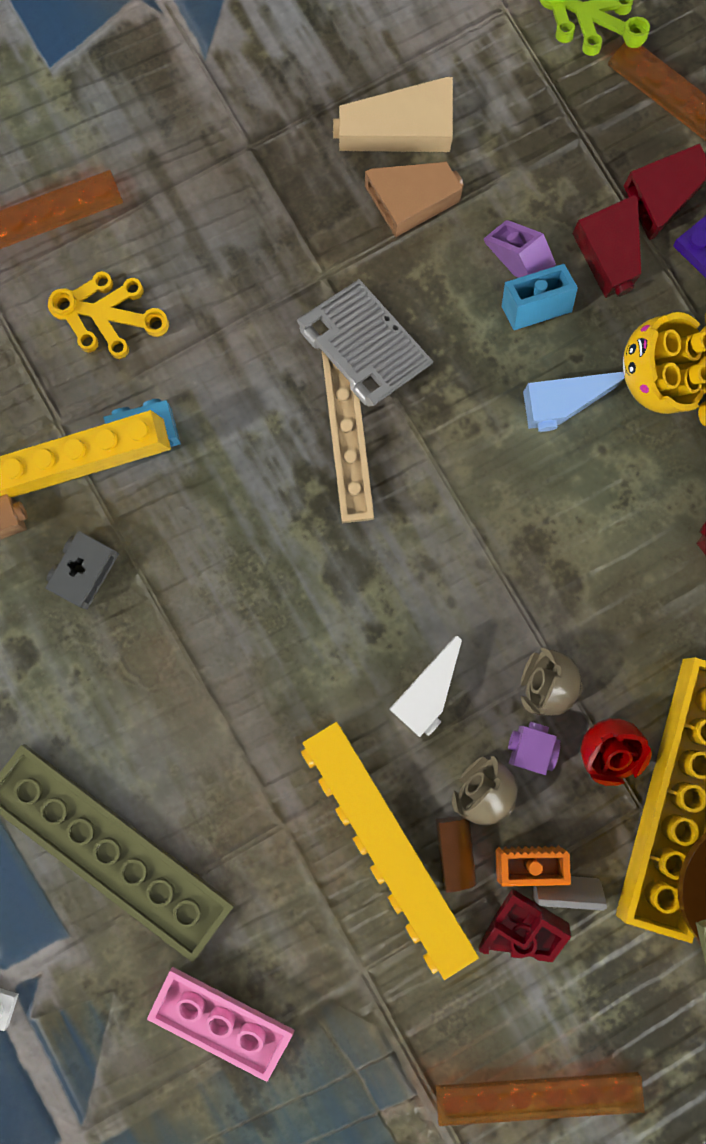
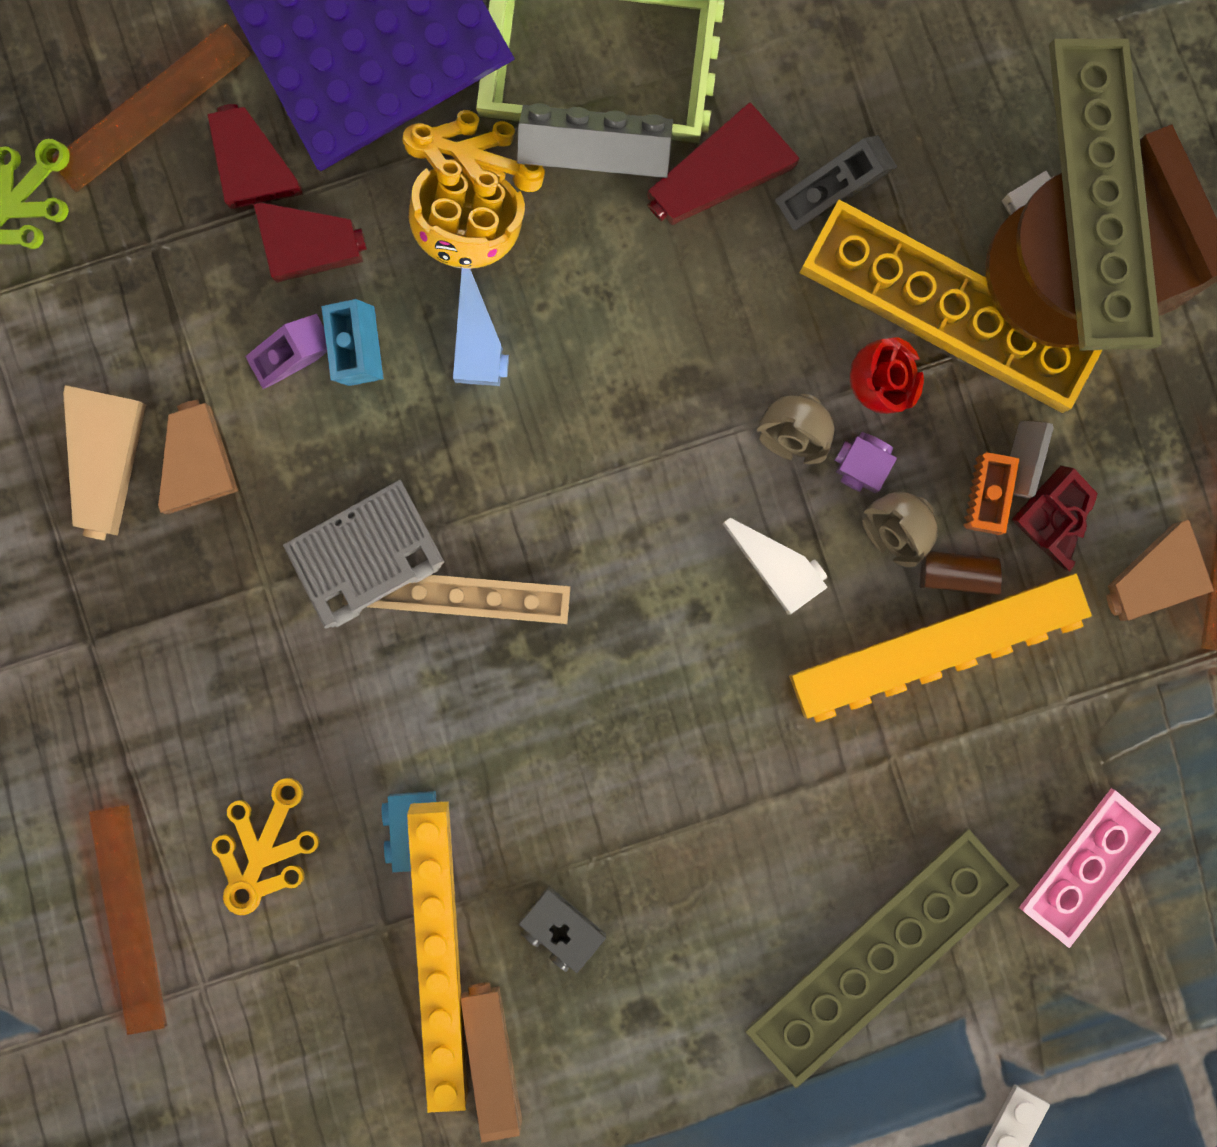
camera: 80 degrees left, 5 degrees up
(493, 1036) = (1161, 576): none -> medium nougat slope

